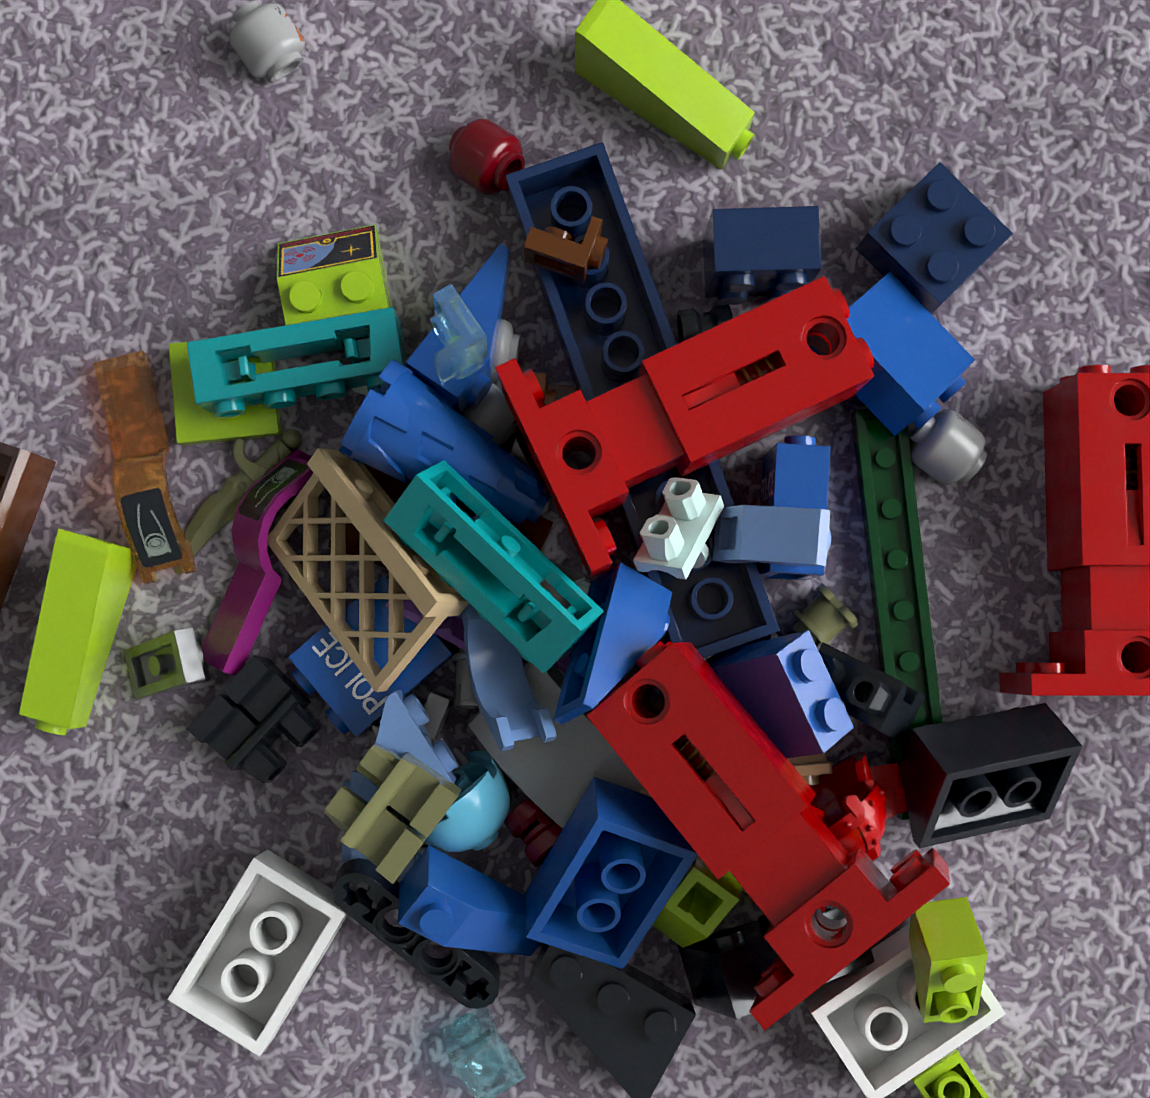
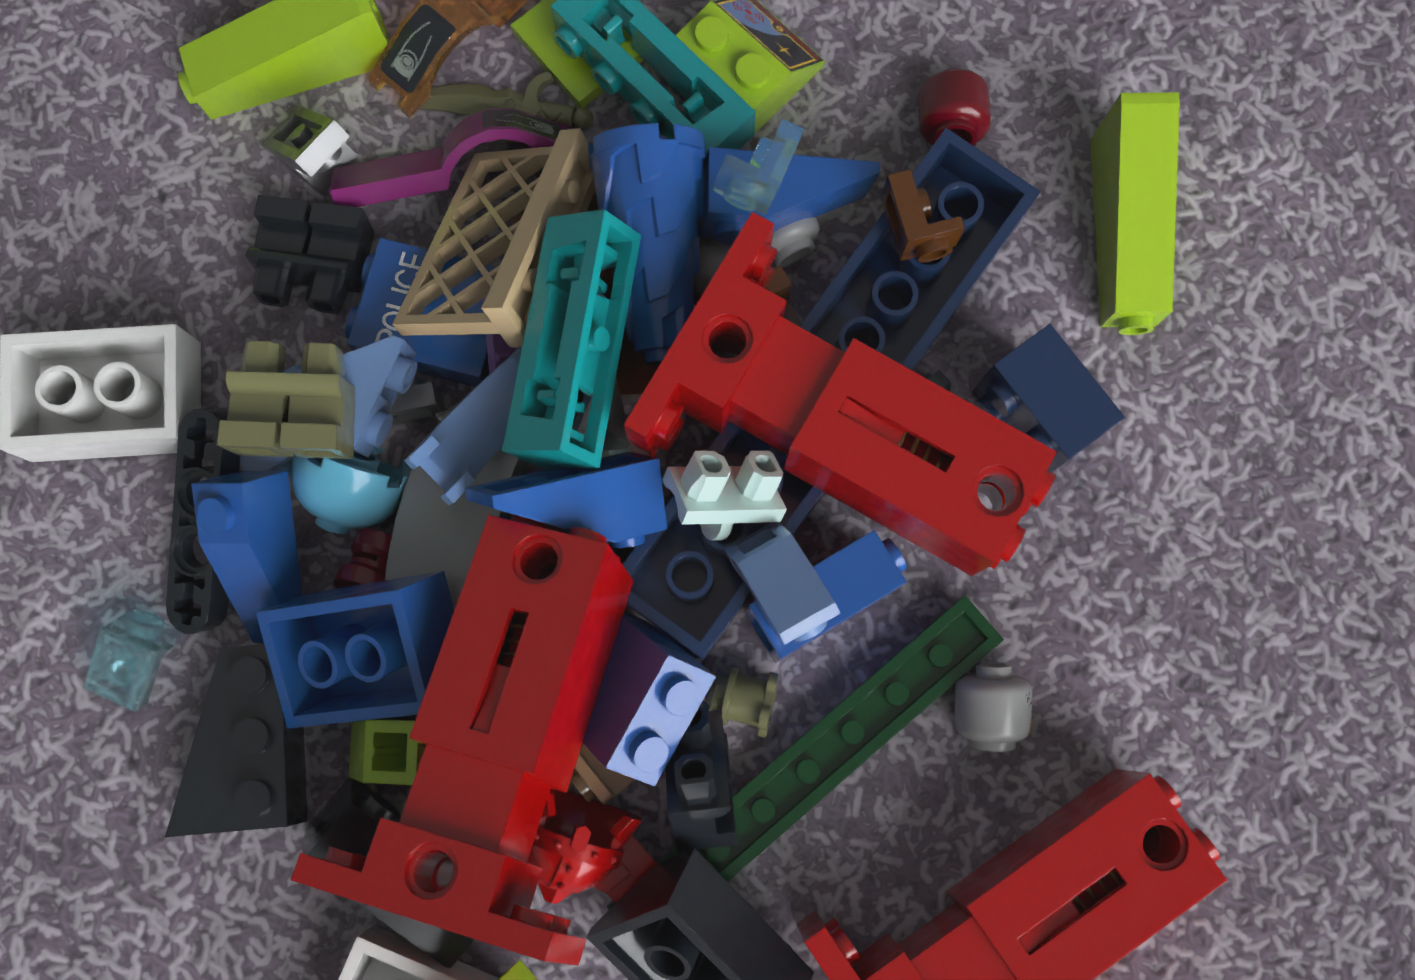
camera: 60 degrees right, 5 degrees down
(911, 355) = (1046, 599): blue brick -> none
(934, 238) = (1179, 559): dark blue brick -> none

